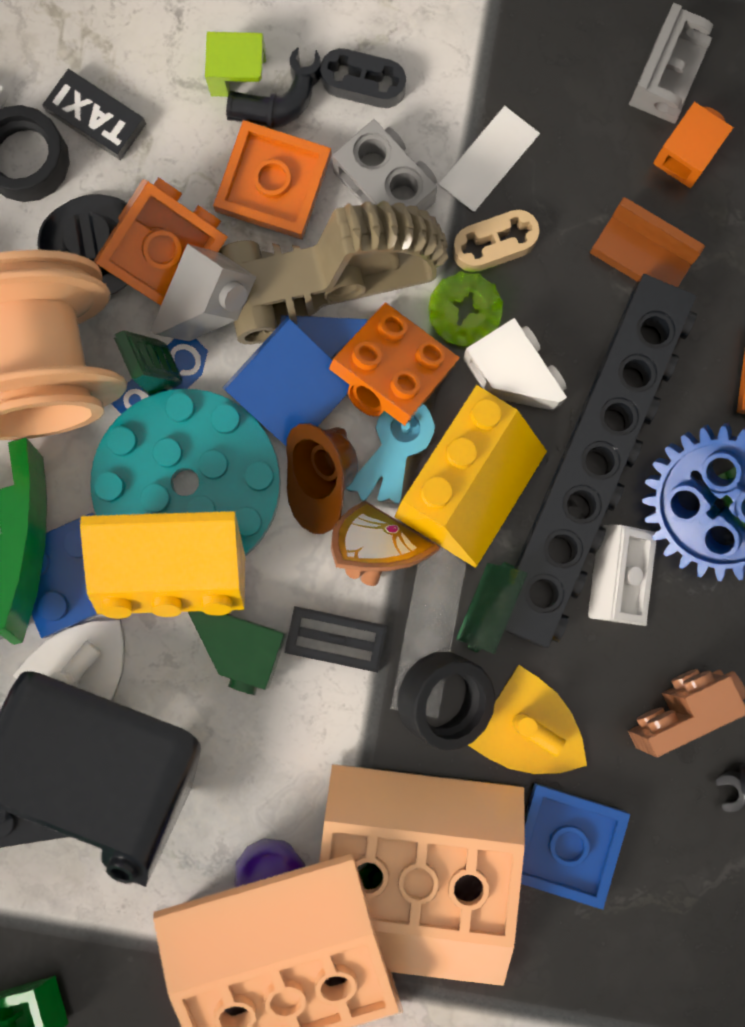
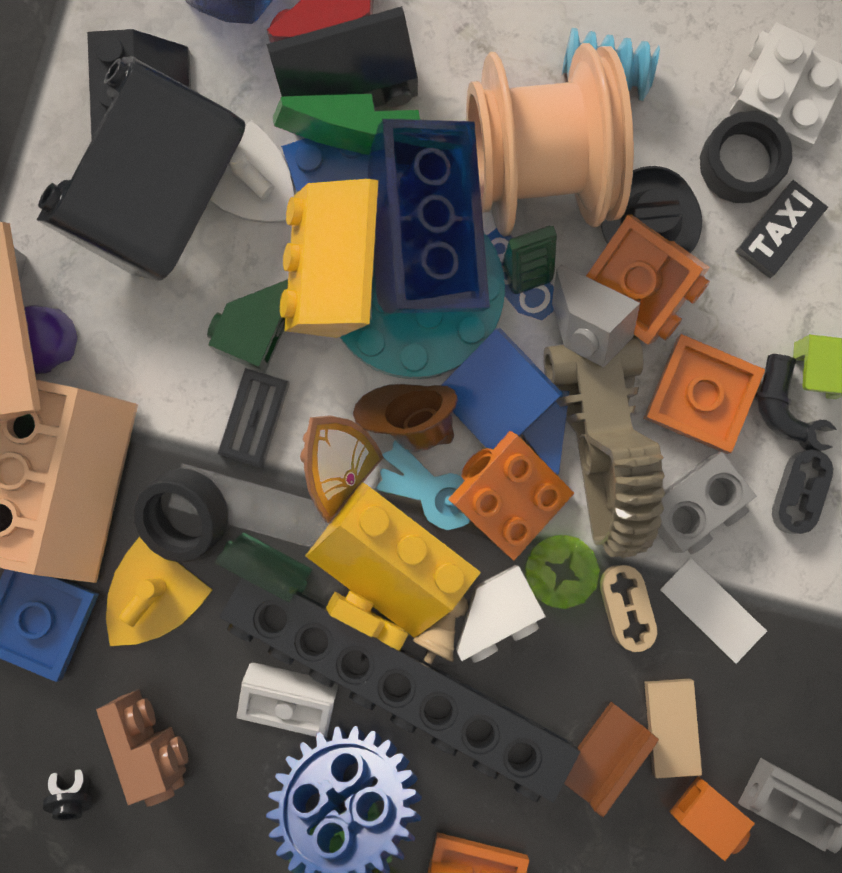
camera: 90 degrees right, 0 degrees up
(113, 463) = (428, 217): none -> clear blue windscreen
(529, 507) = (357, 613): none -> yellow plate
(545, 424) = (441, 635): none -> tan piece
(601, 188) = (674, 721): none -> tan tile

